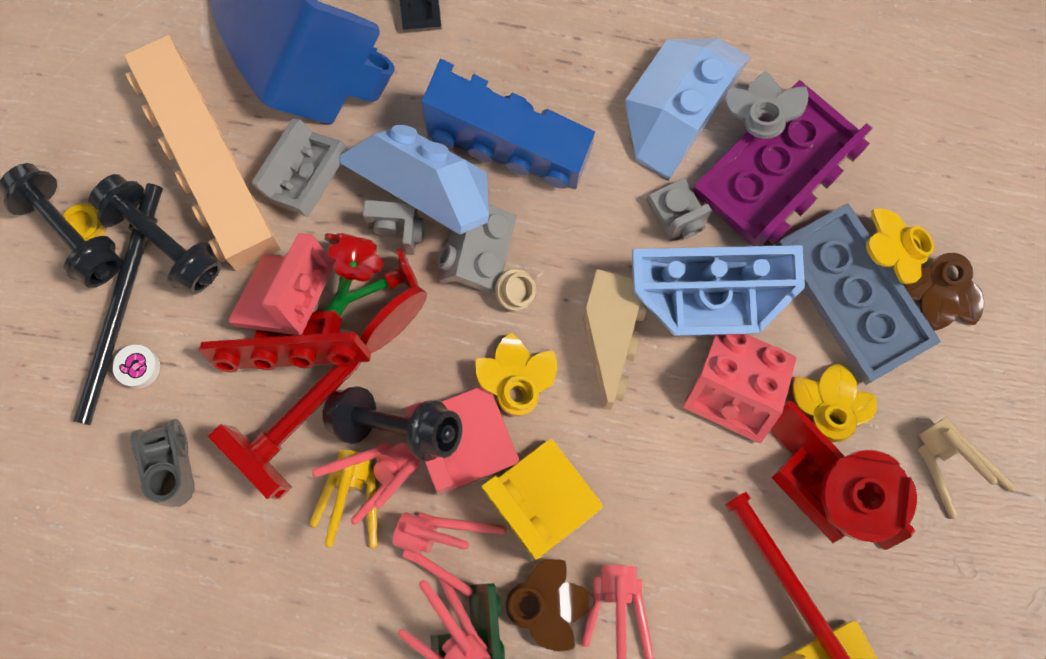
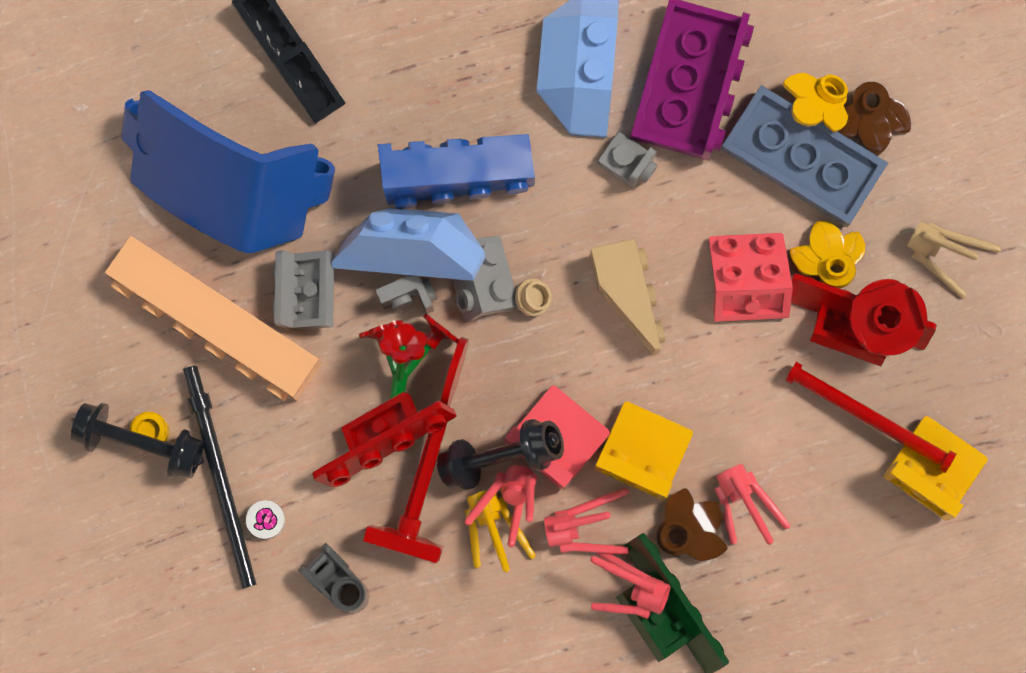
camera: 25 degrees left, 5 degrees up
(118, 199) = (172, 395): black piece -> none
(284, 289) = (351, 397): coral bracket -> none
(516, 370) = (570, 360): yellow plate -> none
(717, 286) = (693, 213): light blue wedge -> none
(768, 103) = (654, 33): light grey plate -> none

